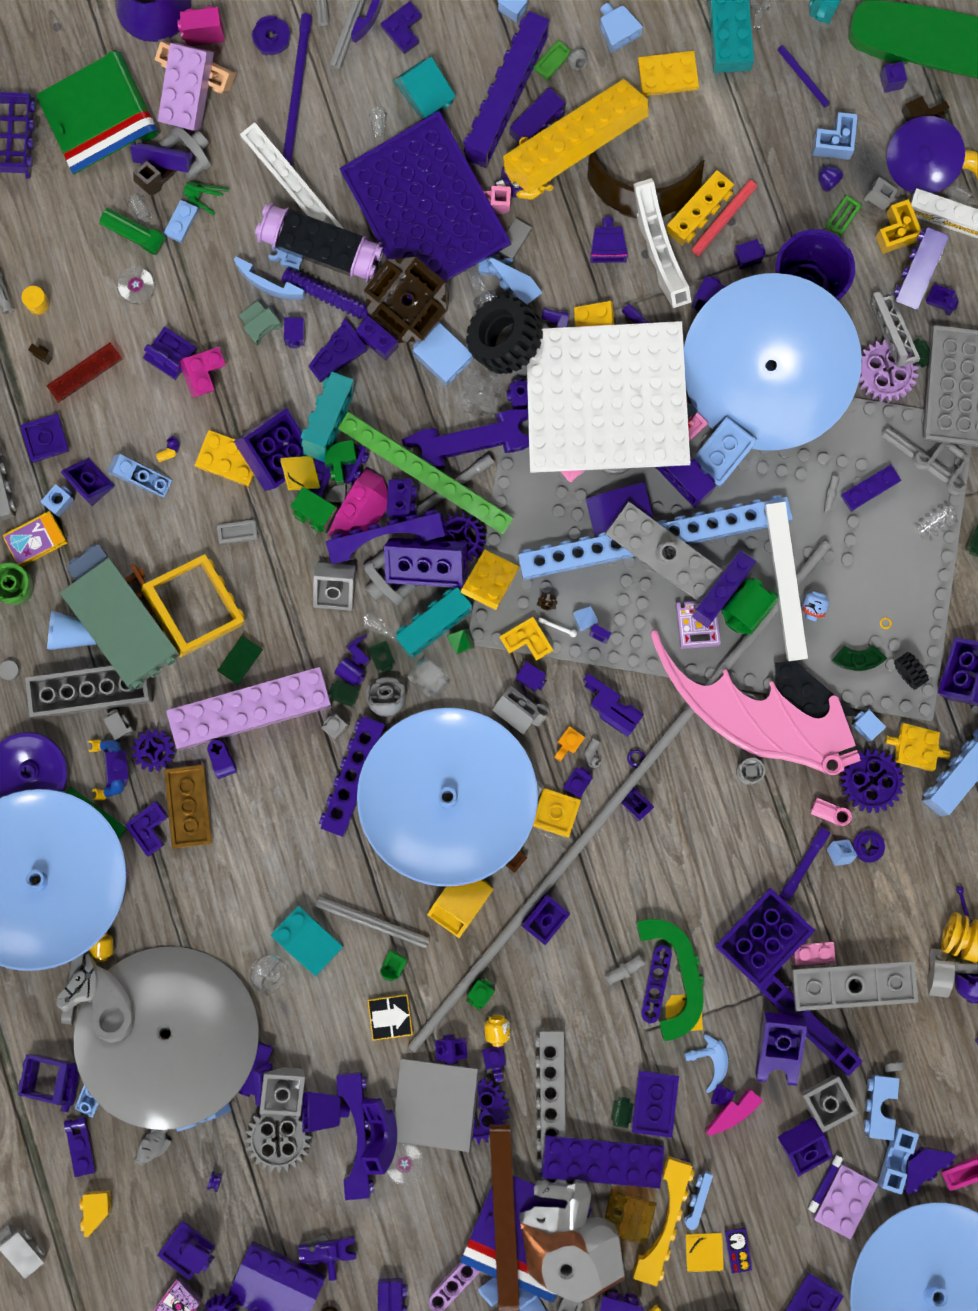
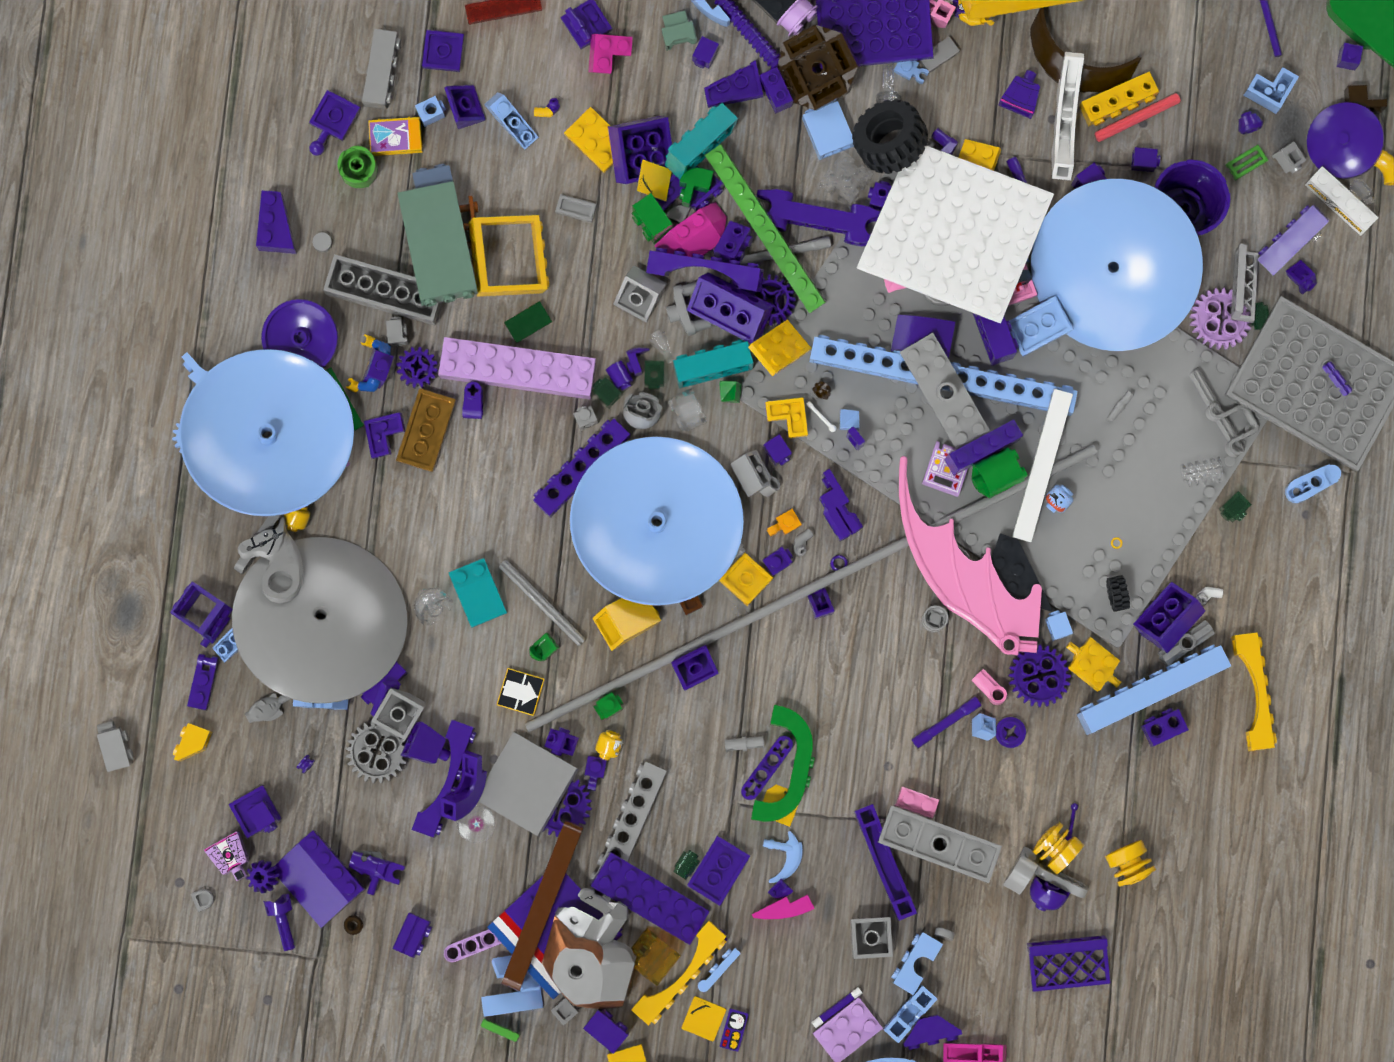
camera: 25 degrees right, 0 degrees up
(67, 632) = (388, 231): light blue cone -> none
(514, 281) = (923, 96): light blue slope -> none
(764, 938) = (879, 769): dark purple slope -> none
(781, 1046) = (849, 875): dark purple brick -> none
(805, 1146) = (833, 967): dark purple slope -> none
(859, 660) = (1077, 565): dark green tile -> none
(870, 488) = (1158, 416): dark purple plate -> none
(903, 228) = (1292, 199): yellow brick -> none

